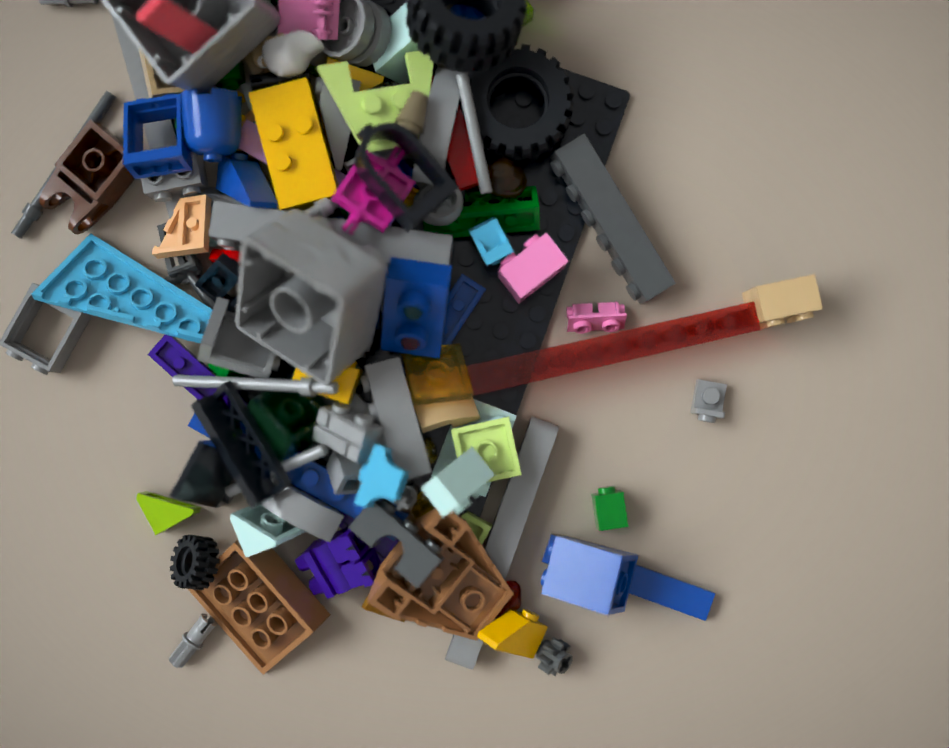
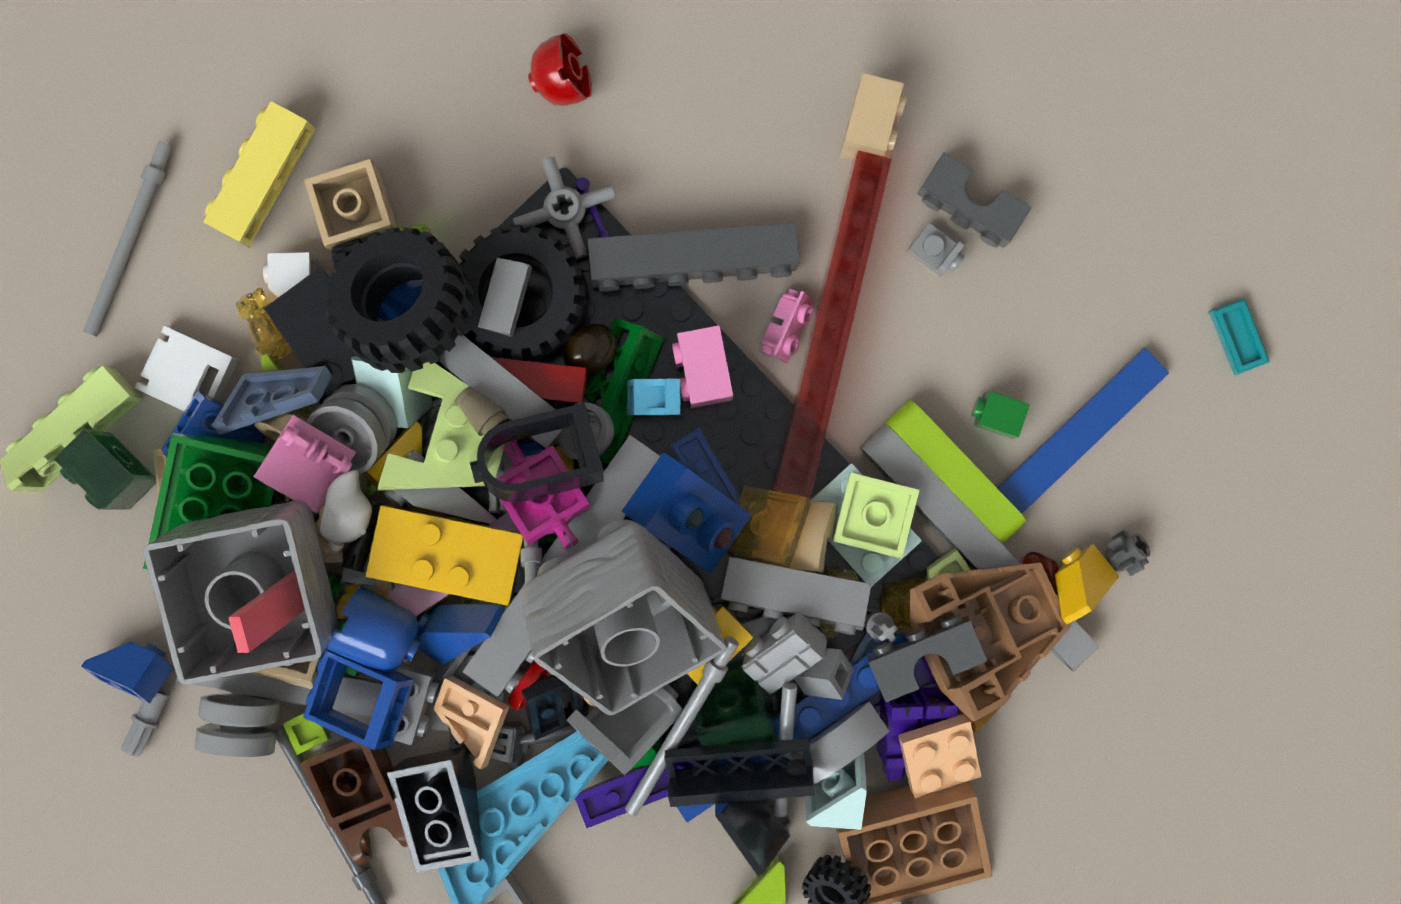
camera: 60 degrees left, 0 degrees up
(95, 60) = (237, 725): none -> light grey wheel
(108, 238) = (438, 808): none -> black slope
(113, 114) = (305, 733): none -> lime plate
(330, 590) = (940, 755): none -> light nougat plate
(380, 478) = (852, 640): medium azure brick -> none
(457, 482) = (897, 561): light aqua brick -> none
(474, 133) = (531, 356): light grey bar -> none
(509, 91) = (505, 296): none -> light grey slope
(550, 497) = (956, 470): none -> lime beam
(589, 575) = (1060, 472): slope -> none
(602, 115) = (576, 211): none -> light grey bar
(622, 113) = (582, 186): none -> dark purple hinge
(698, 51) = (558, 72): none -> red cylinder
(756, 384) = (946, 191): none -> dark grey arch
(760, 660) = (1239, 336): none -> teal tile

